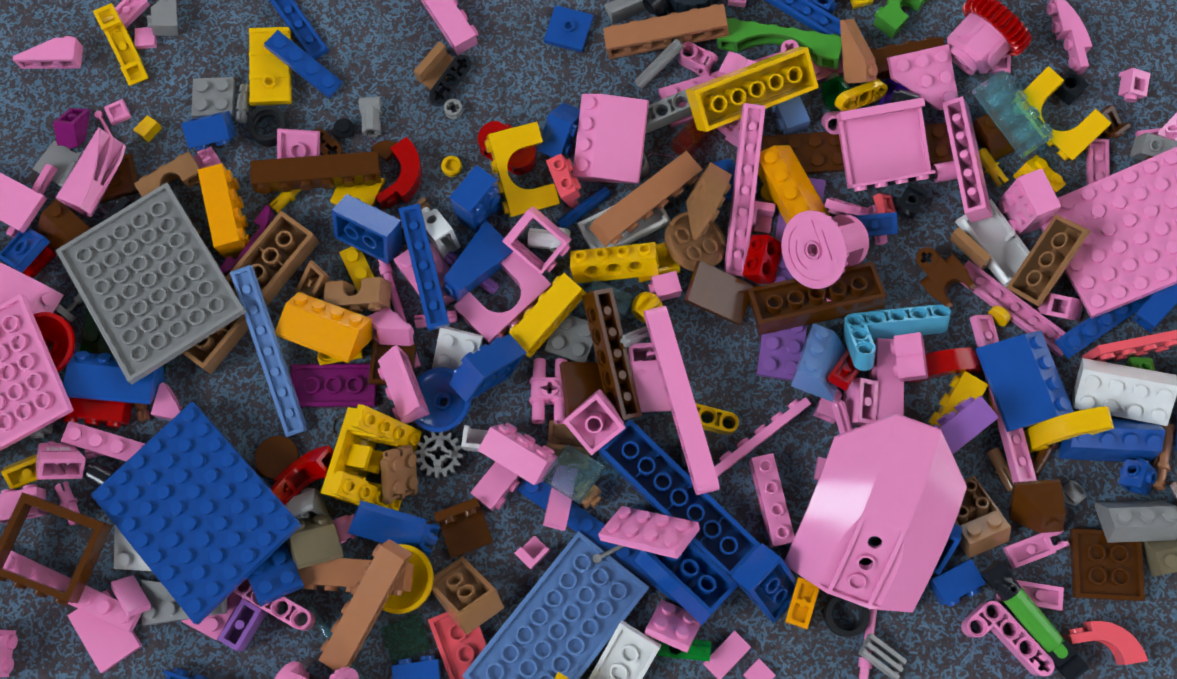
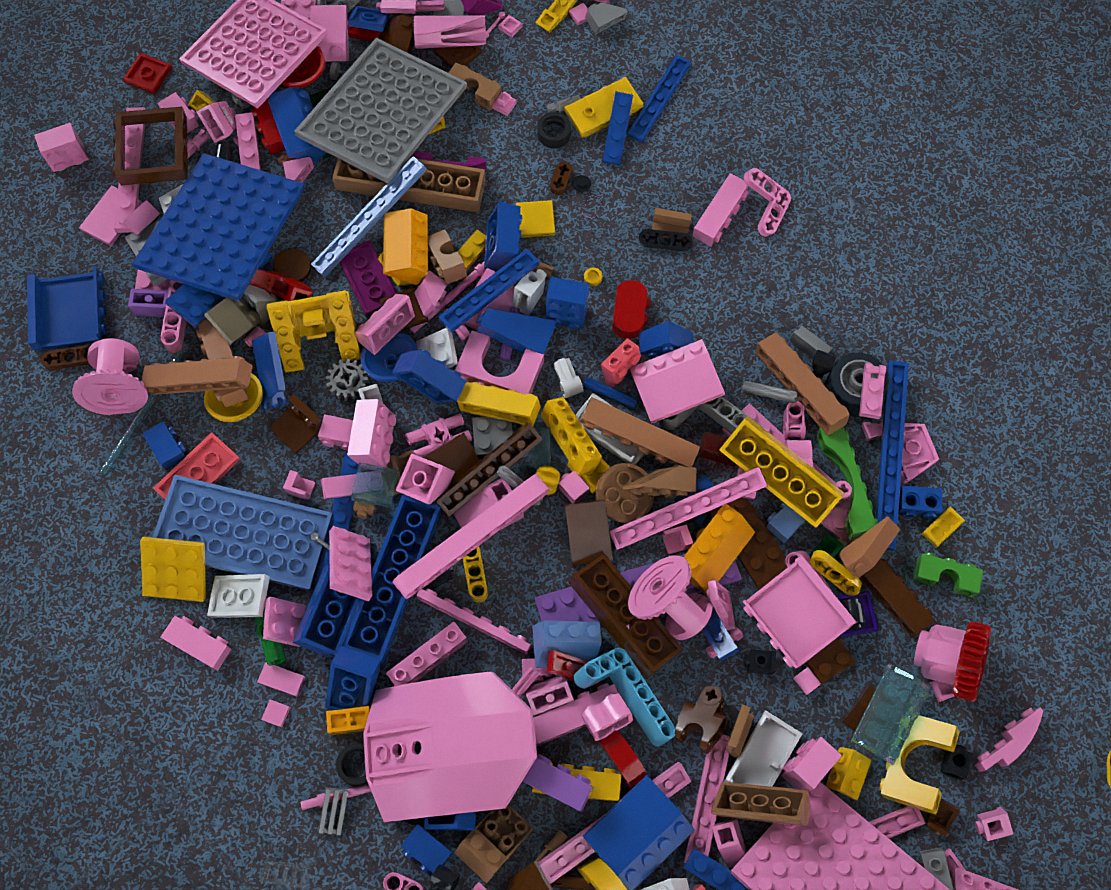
camera: 60 degrees right, 5 degrees down
(147, 128) = (508, 52): yellow slope -> none
(208, 129) = (524, 90): blue brick -> none
(213, 96) = (557, 82): light grey plate -> none
(224, 210) = (465, 131): light orange brick -> none
(283, 199) = (506, 171): yellow pin -> none
(297, 143) = (544, 160): bright pink tile -> none
(313, 281) = (443, 220): medium nougat slope -> none
(315, 172) = (531, 180): reddish brown brick -> none
(370, 114) = (605, 195): light grey piece -> none
(384, 149) = (580, 222): reddish brown tile -> none
(398, 474) = (315, 353): medium nougat plate -> none
(405, 638) = (192, 425): clear green piece -> none
(409, 177) = (565, 249): red arch -> none
(451, 102) = (642, 260): light grey bush -> none
(466, 595) = (240, 449): medium nougat slope -> none
(502, 146) = (621, 301): yellow arch -> none
(521, 250) = (543, 363): bright pink window -> none
(568, 28) = (764, 308): blue plate -> none
(762, 259) = (638, 557): red brick -> none
(884, 203) = (745, 640): coral tile -> none
(927, 74) = (888, 623): bright pink plate -> none
(967, 160) = (825, 692): bright pink brick -> none
(992, 167) = (835, 722): yellow axle -> none
(1000, 315) = (693, 788): yellow tile -> none

